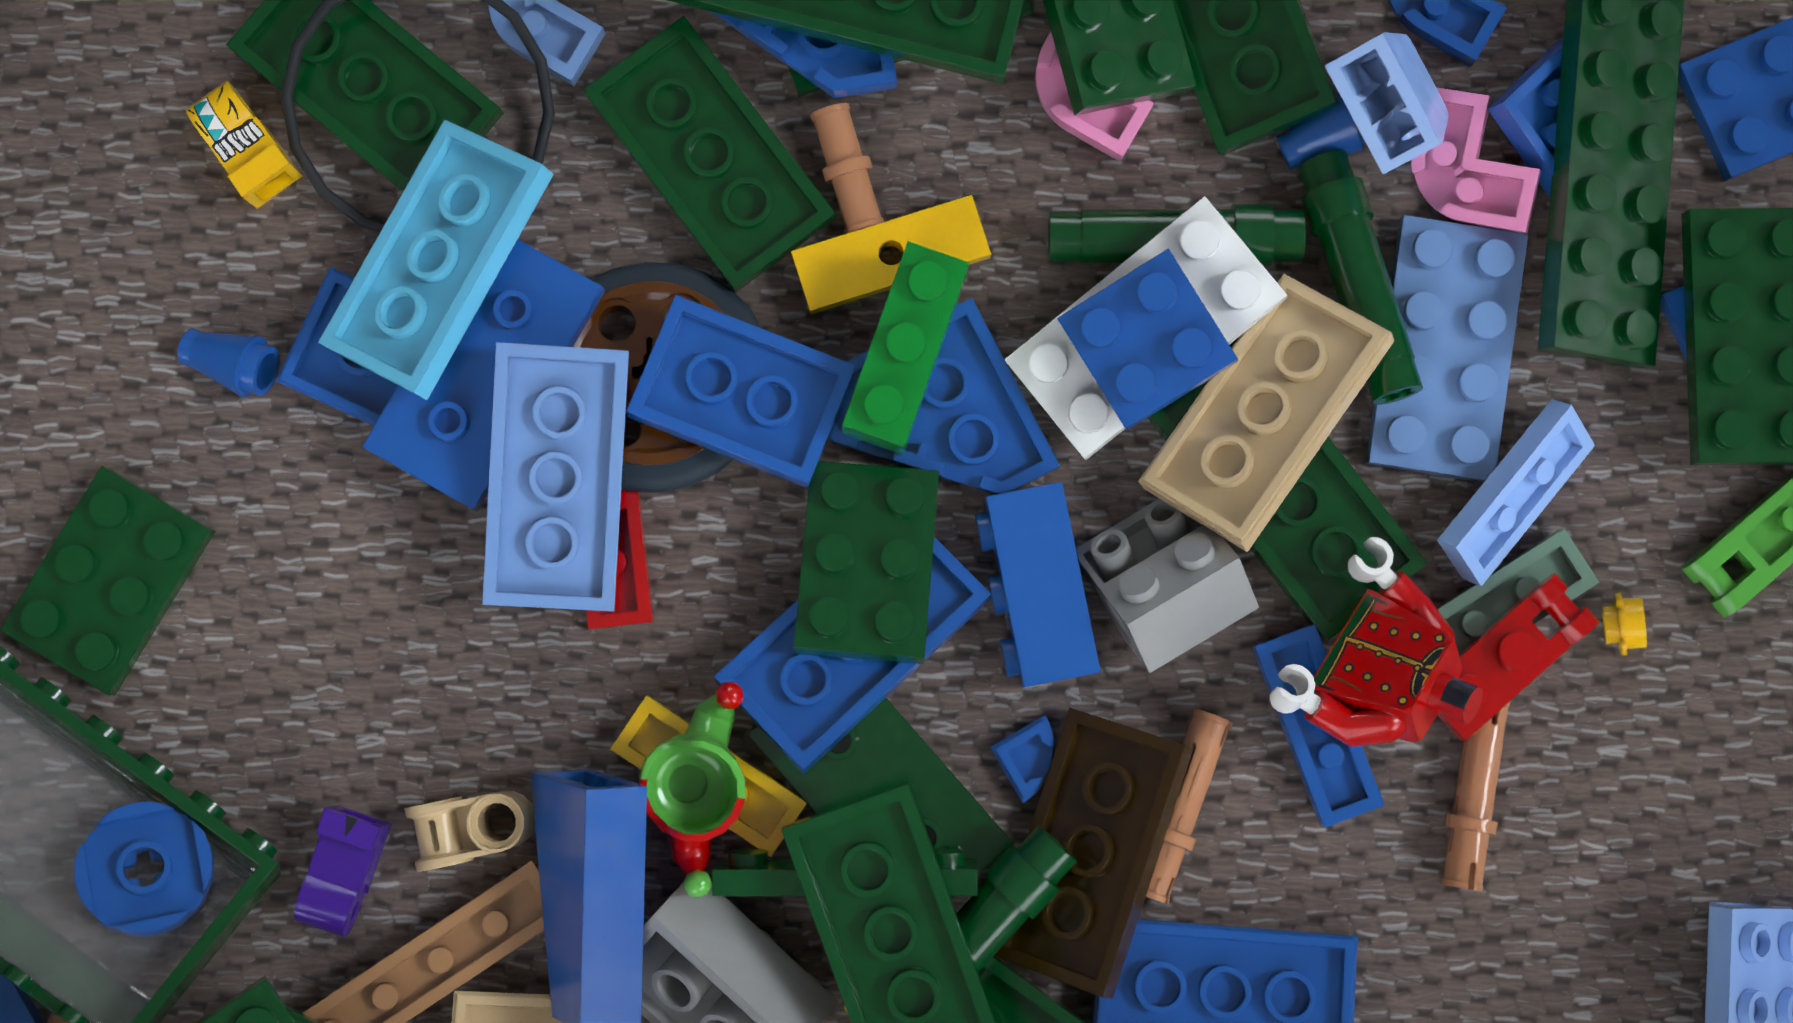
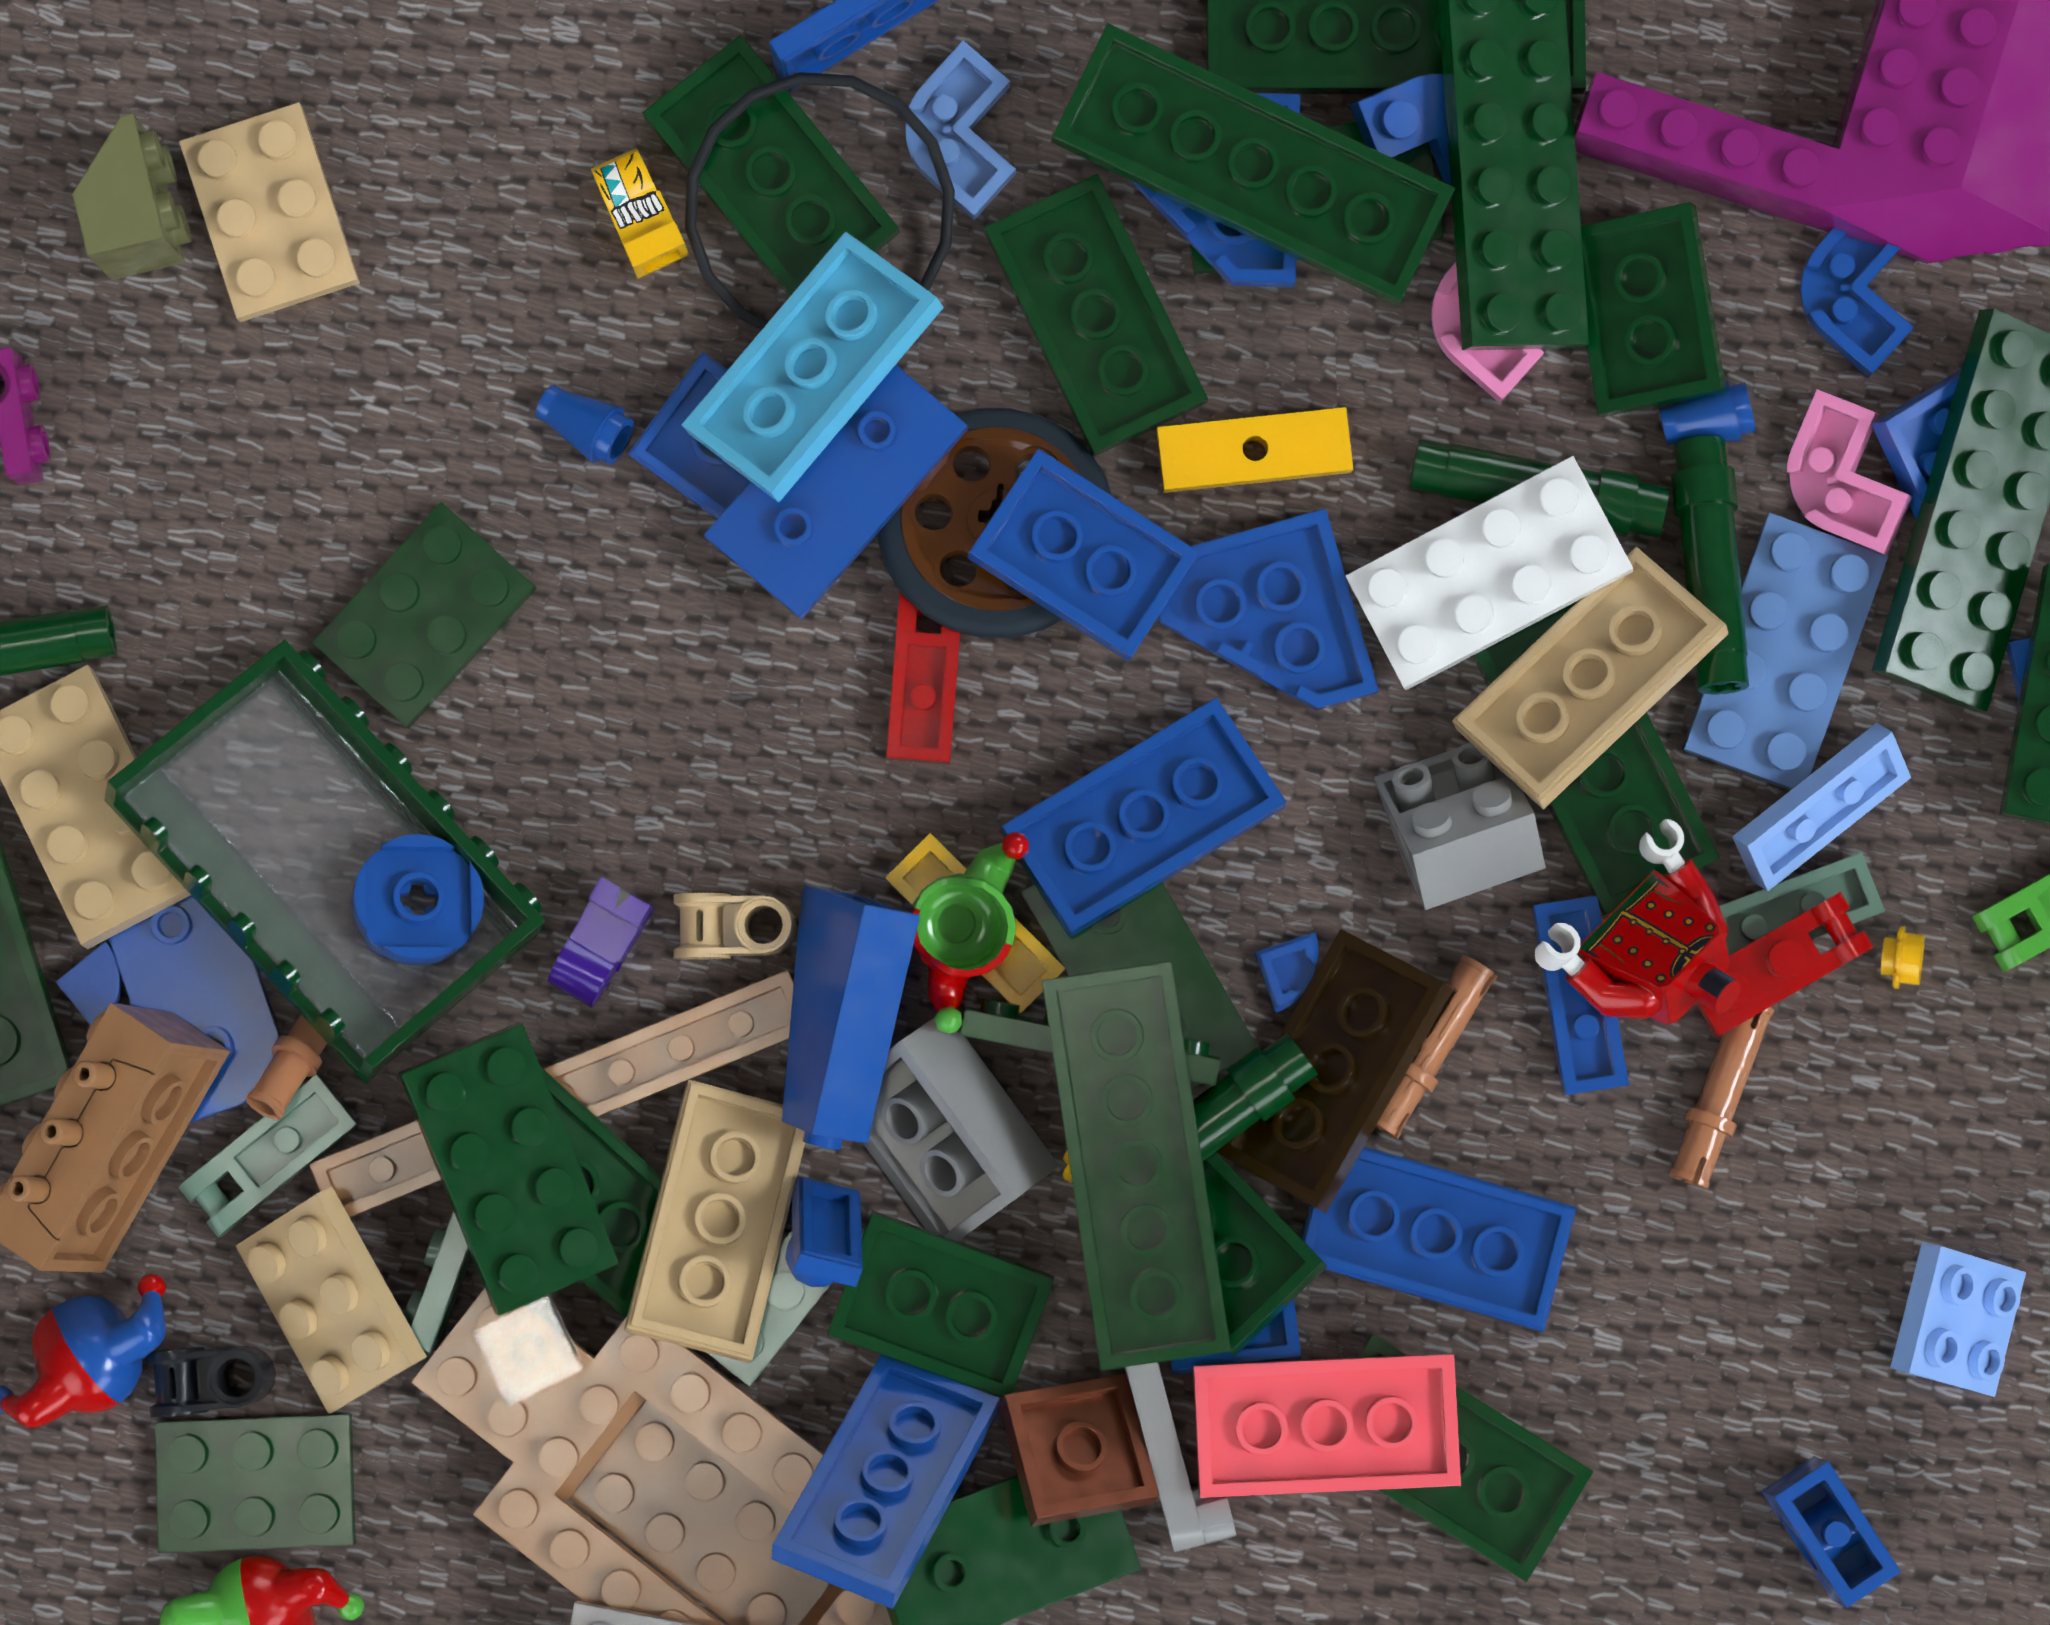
camera: 10 degrees right, 0 degrees up
(555, 477) = (888, 602): medium blue plate -> none
(846, 167) = (1228, 355): nougat pin -> none
(867, 562) = (1172, 746): dark green plate -> none
(905, 348) = (1251, 545): green brick -> none
(1038, 585) = (1333, 803): blue brick -> none
(1147, 339) = (1488, 584): blue plate -> none
(1391, 99) = (1775, 397): light blue torso -> none

